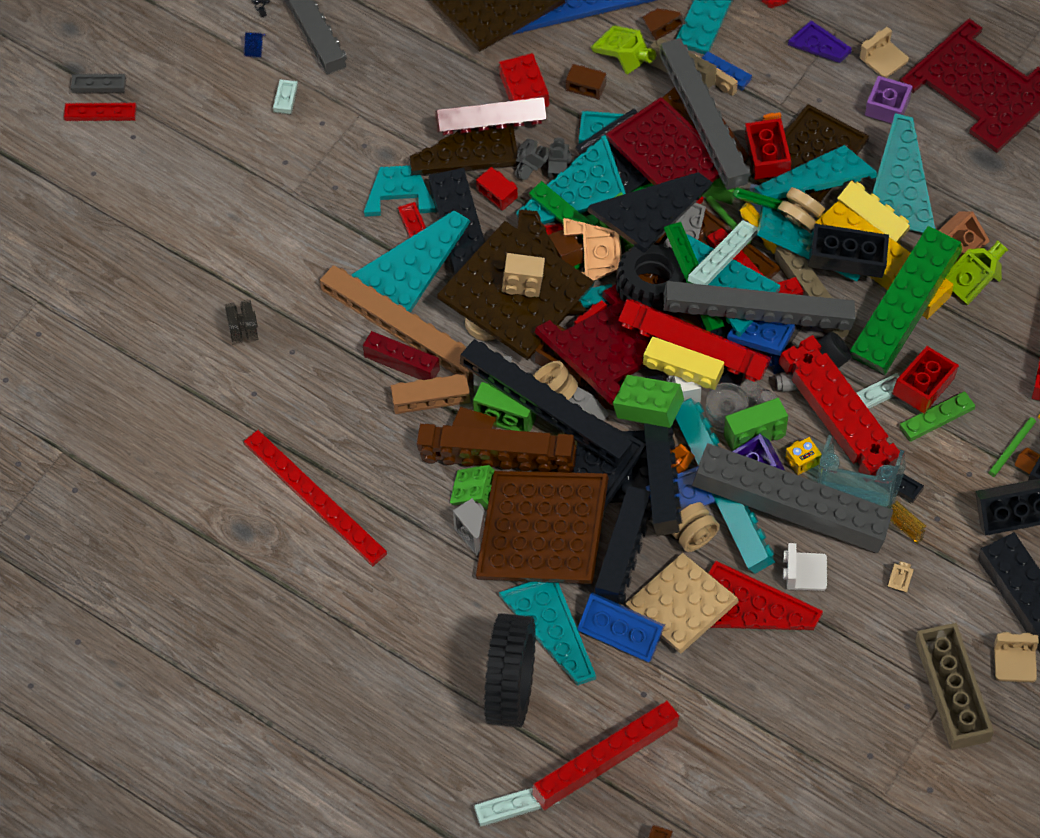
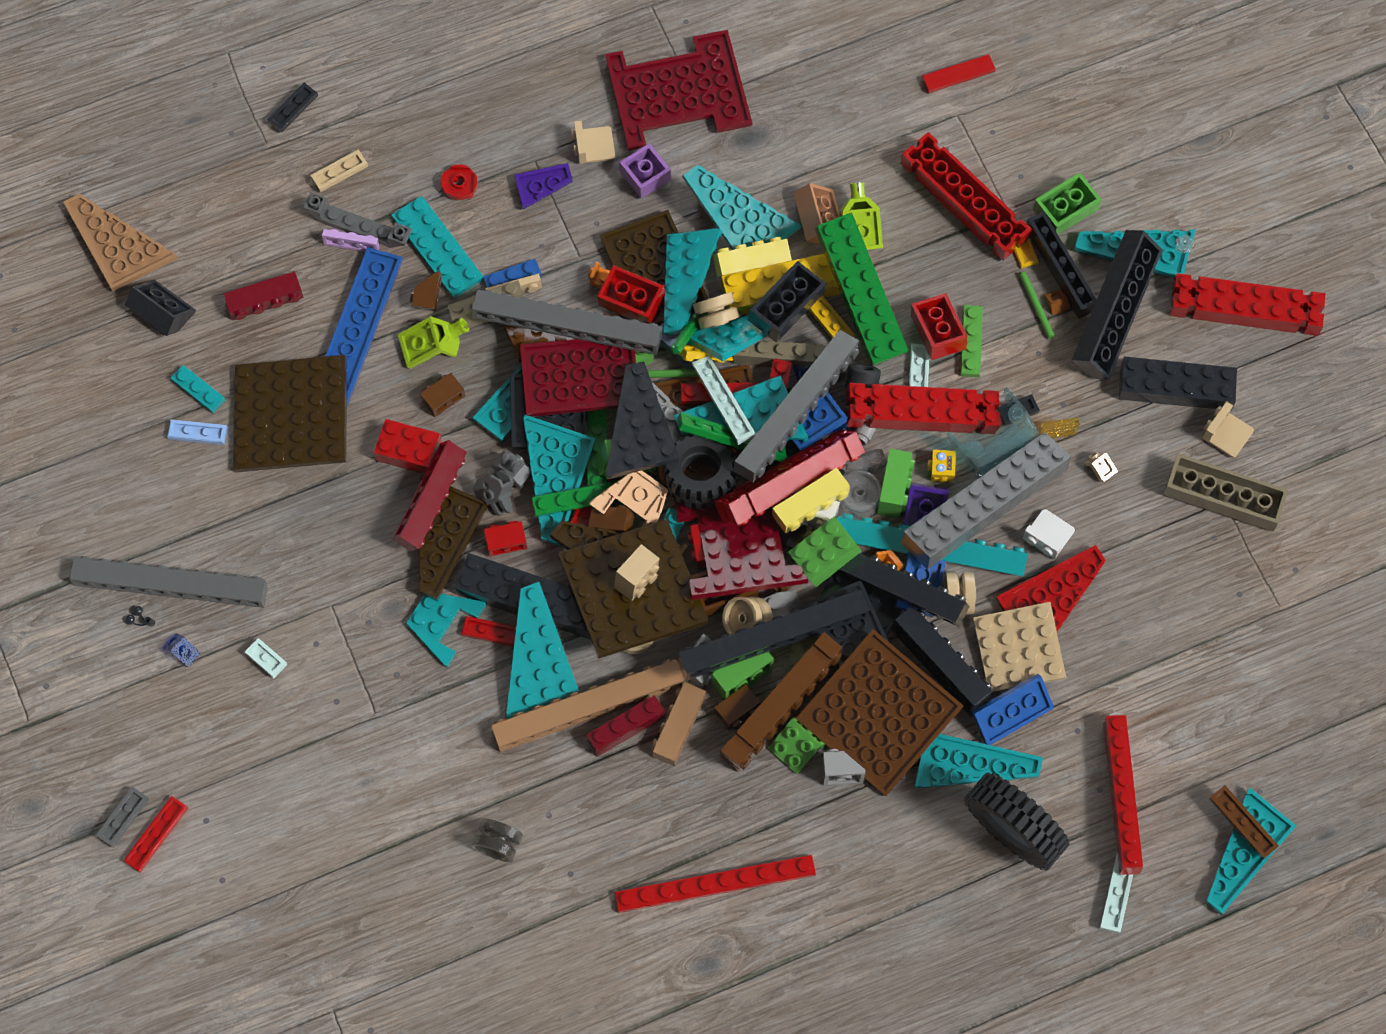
camera: 60 degrees left, 10 degrees up
(868, 301) = (829, 318): none -> yellow plate

